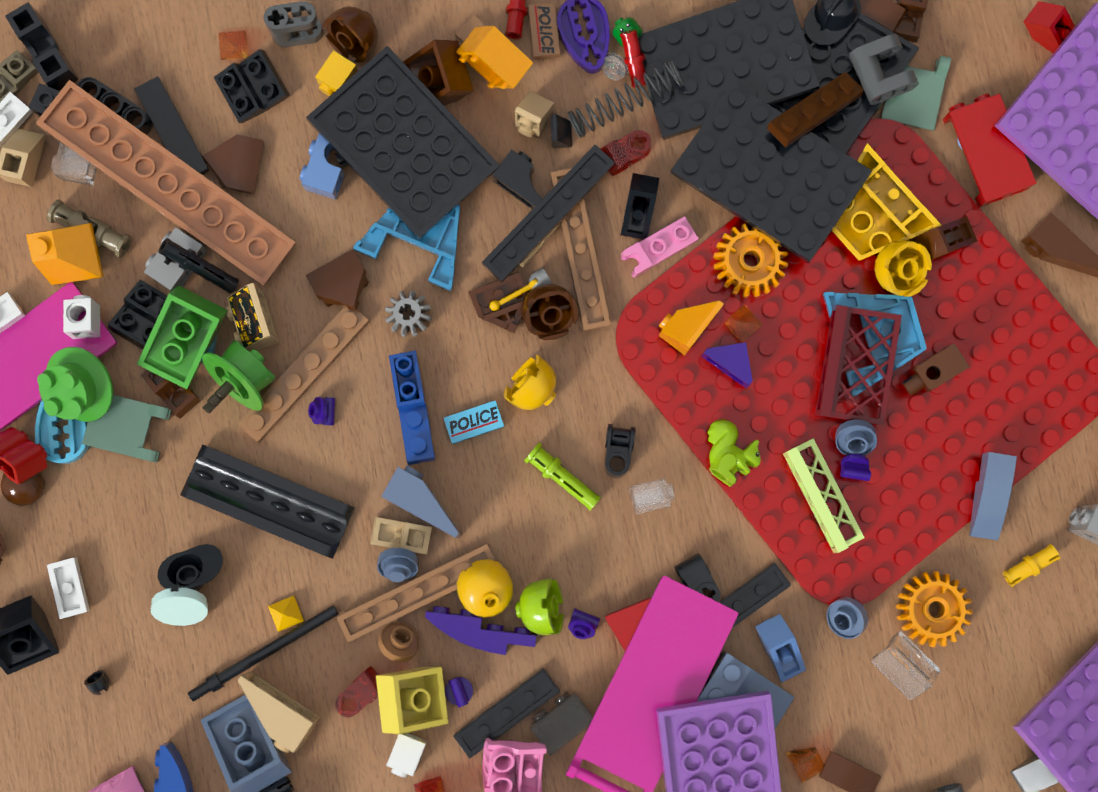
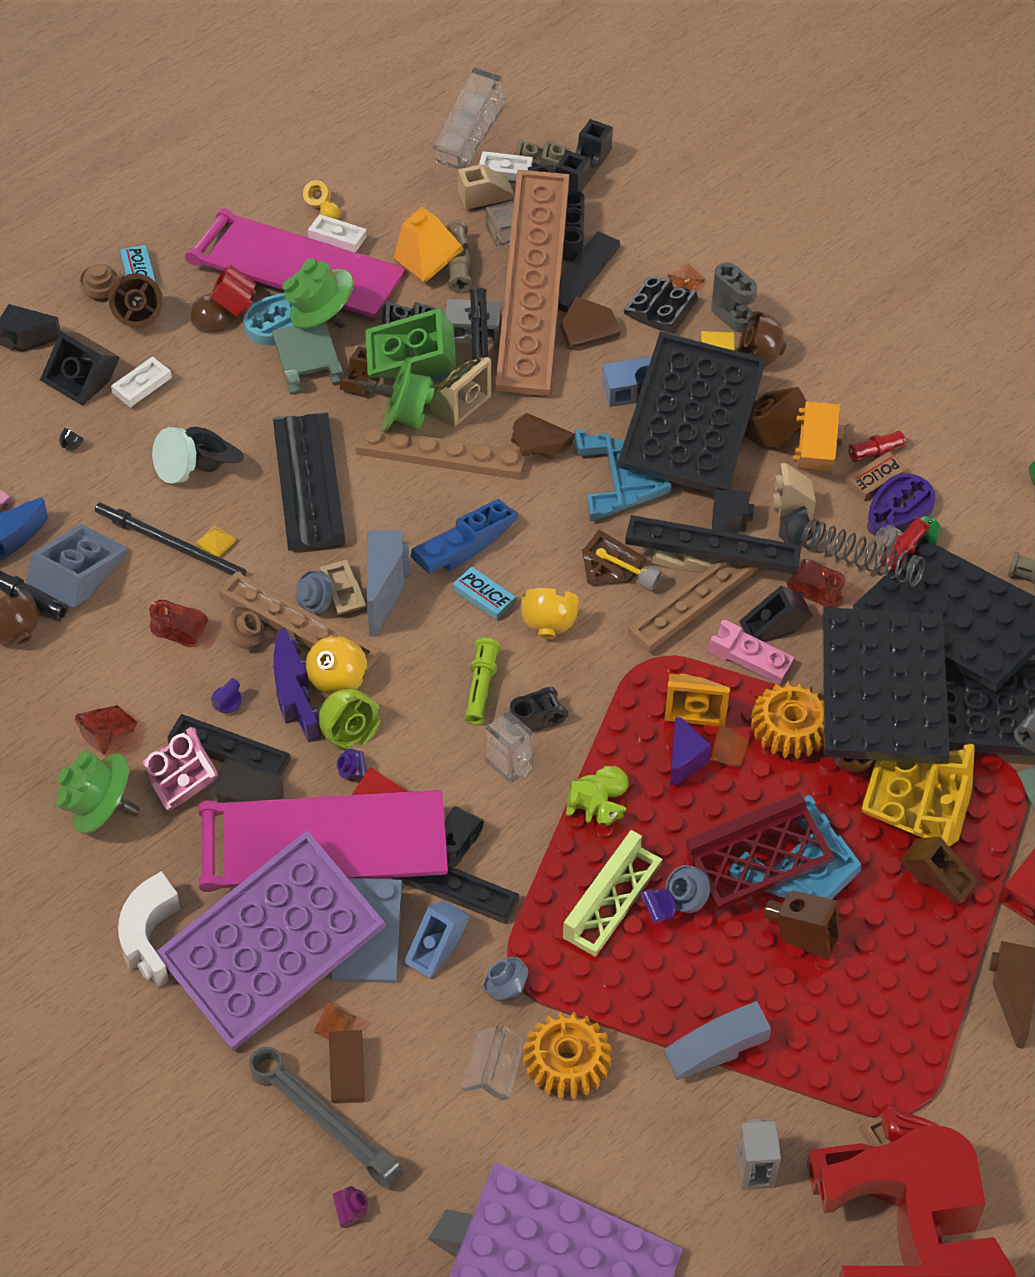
camera: 60 degrees right, 30 degrees down
(87, 327) = (378, 280): white brick -> none
(280, 715) = (121, 566): tan slope -> none
(322, 411) = (416, 480): dark purple plate -> none
(406, 754) = (142, 683): white brick -> none
(412, 699) = (196, 654): light yellow brick -> none
(416, 307) = (546, 496): light grey gear -> none
(549, 311) = (624, 588): reddish brown cylinder -> none
(815, 109) = (970, 686): reddish brown plate -> none
(903, 268) = (897, 838): yellow cylinder -> none
(1031, 565) = (674, 1127): yellow pin -> none

